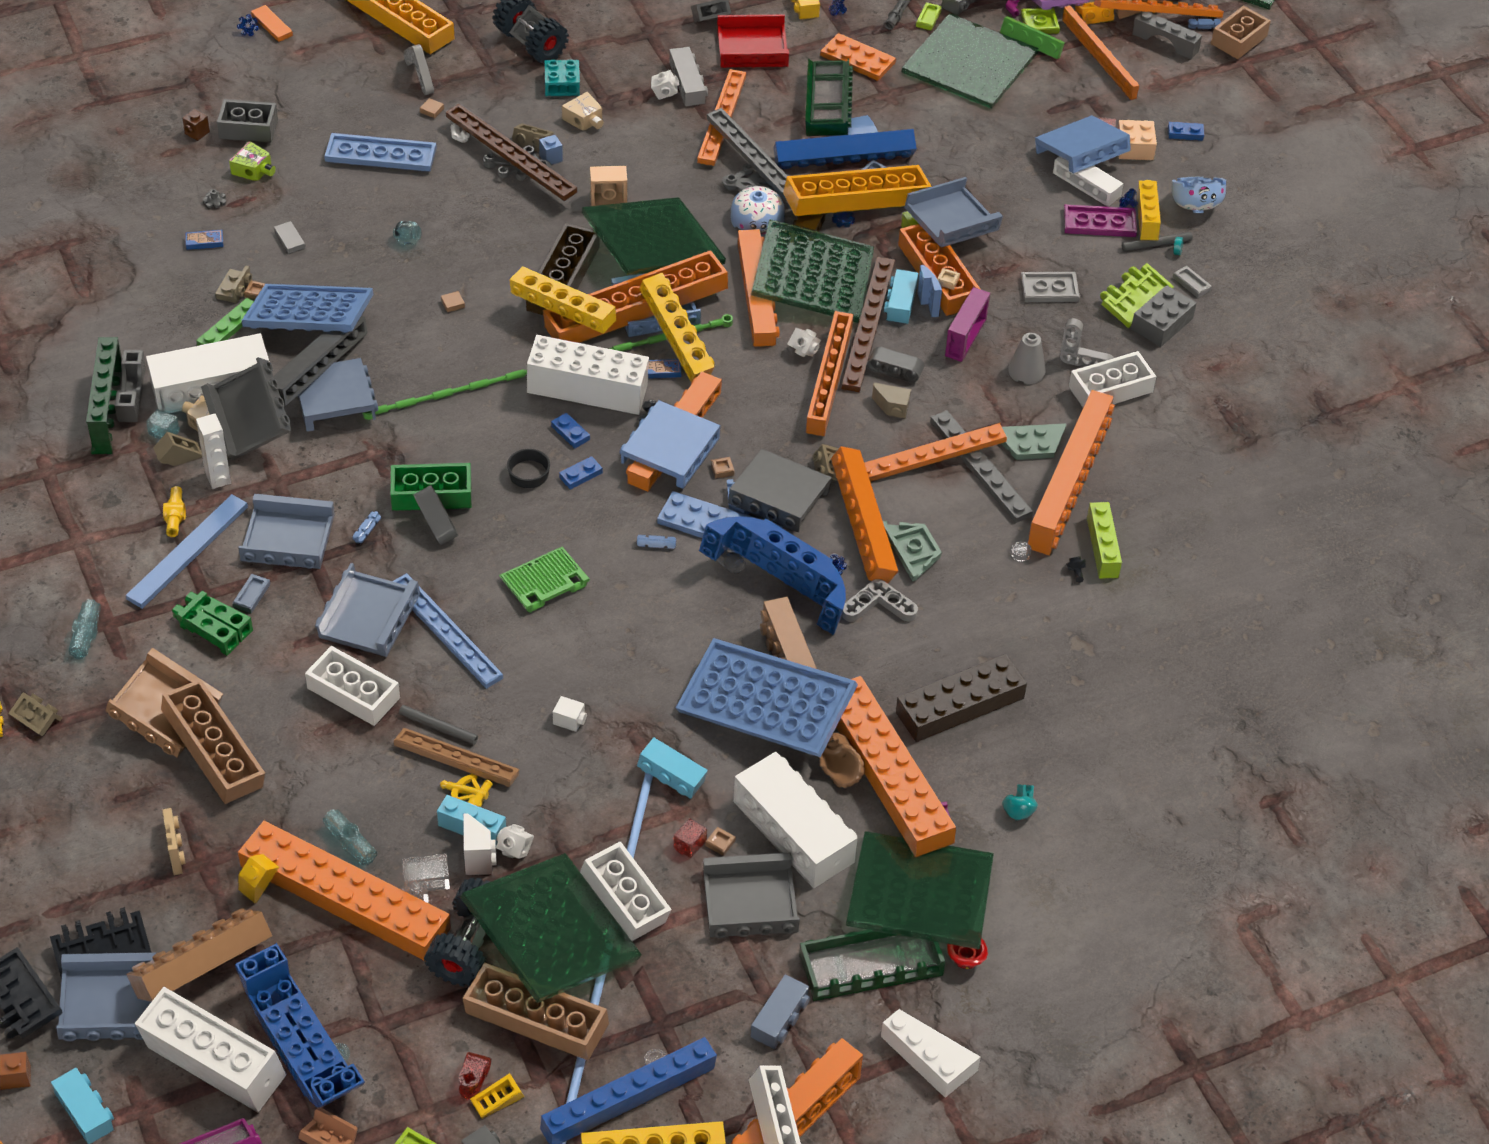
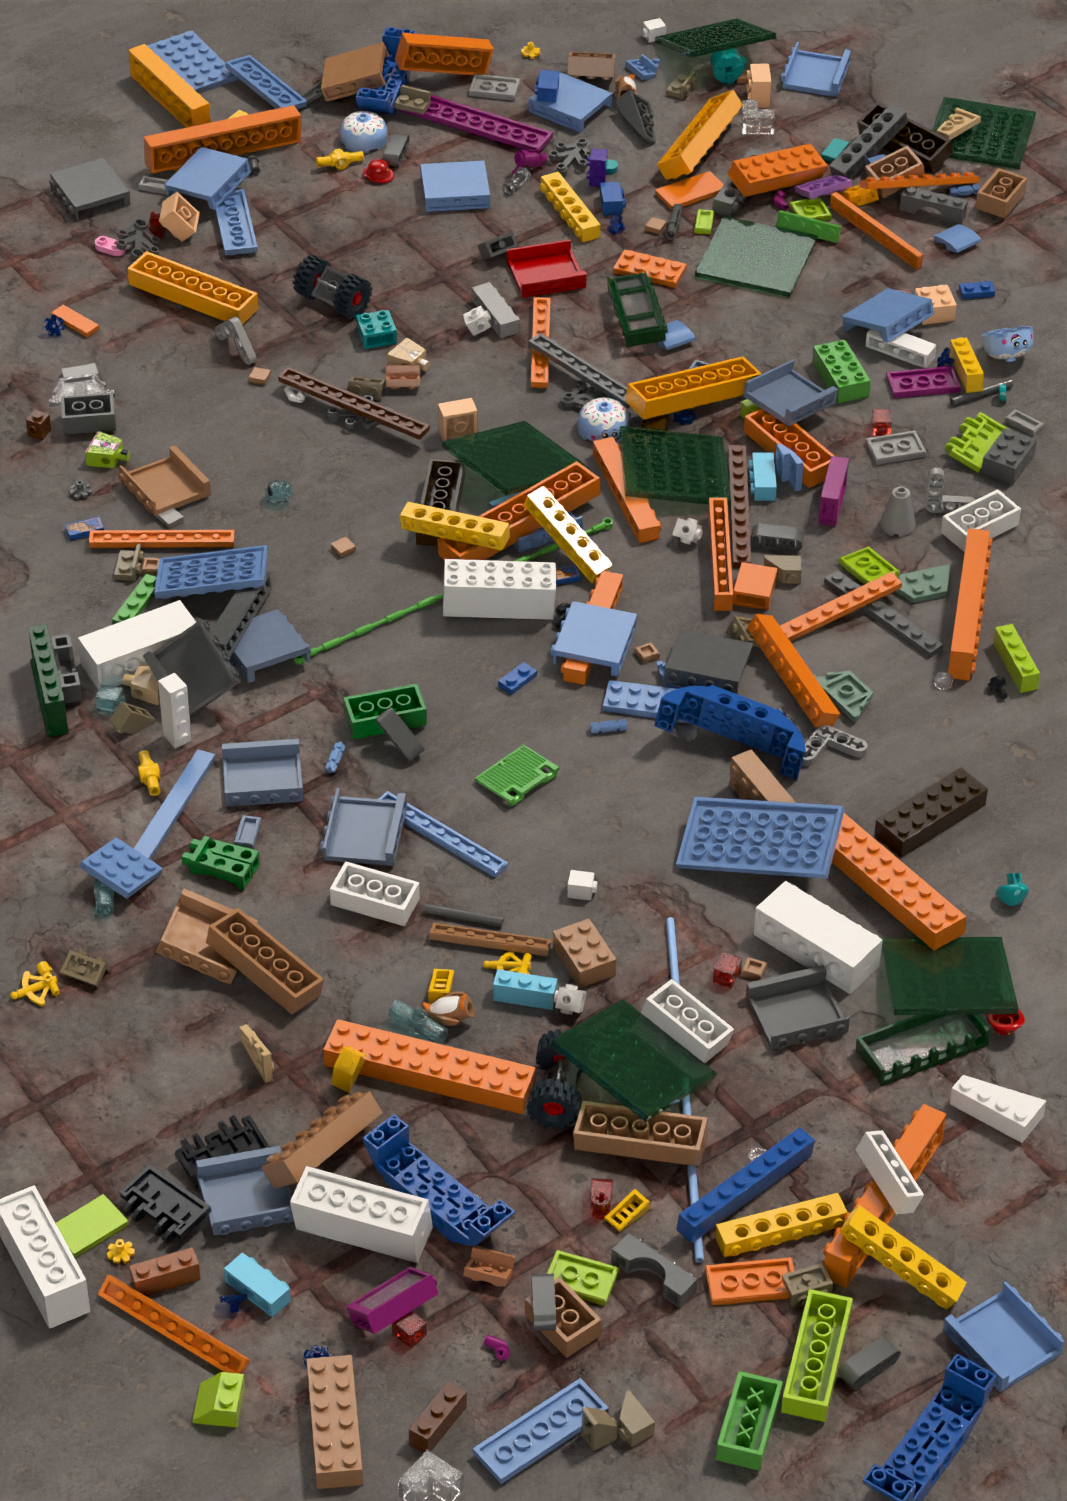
camera: 10 degrees left, 5 degrees down
(51, 1119) = (233, 1301): none -> clear blue plant
(107, 610) = (121, 867): none -> medium blue plate
(251, 91) = (77, 386): none -> clear wing
(257, 78) = (80, 370): none -> light grey tile
(275, 263) = (161, 538): none -> orange plate
(299, 206) = (166, 482): none -> medium nougat panel
(380, 152) = (225, 423): medium blue plate -> none
(386, 829) = (450, 1009): none -> medium nougat animal
(392, 800) = (440, 987): none -> yellow slope
(425, 875) = (503, 1037): clear brick -> none
(478, 847) = (539, 1008): white slope -> none
(528, 455) = (468, 670): black tyre -> none
(546, 791) = (584, 953): none -> medium nougat brick
(551, 149) = (389, 395): medium blue brick -> none
(570, 430) = (494, 643): blue plate -> none
(572, 131) = (402, 376): none -> nougat bracket
(672, 768) = (691, 914): medium azure brick -> none
(780, 1012) = (856, 1098): sand blue brick -> none
(842, 762) = (844, 883): medium nougat piece -> none
(844, 148) = (667, 352): blue brick -> none
(855, 414) = (755, 586): none -> orange brick
(878, 12) = (655, 225): none -> medium nougat tile
(948, 278) = (805, 452): tan tile -> none
(979, 410) = (867, 565): none -> lime tile
(1017, 196) = (842, 370): none -> bright green brick
(1042, 257) = (881, 422): none -> clear red brick
(1182, 73) = (957, 238): none -> medium blue slope

